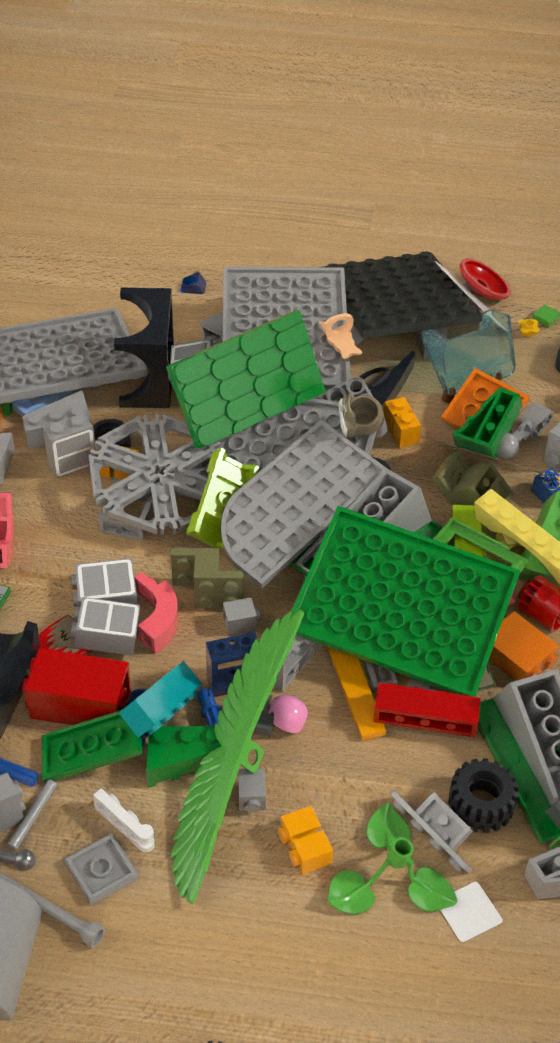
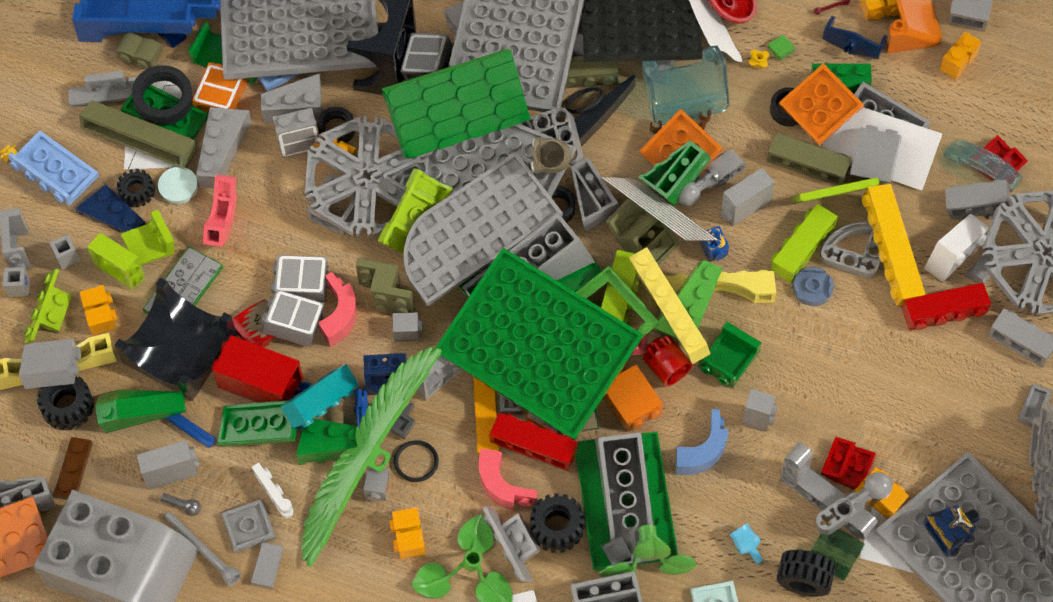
camera: 15 degrees right, 15 degrees up
(31, 815) = (204, 471): light grey bar -> none
(136, 913) = (267, 565): none -> light grey tile
(289, 713) = (422, 423): bright pink hair -> none
(290, 779) = (416, 442): none -> black tyre
(341, 336) = (561, 59): light nougat hair -> none
(375, 354) = (591, 73): none -> olive brick
(398, 769) = (497, 488): none -> coral arch
(402, 422) = (602, 155): light orange piece -> none
(407, 456) = (593, 195): none -> light grey wedge

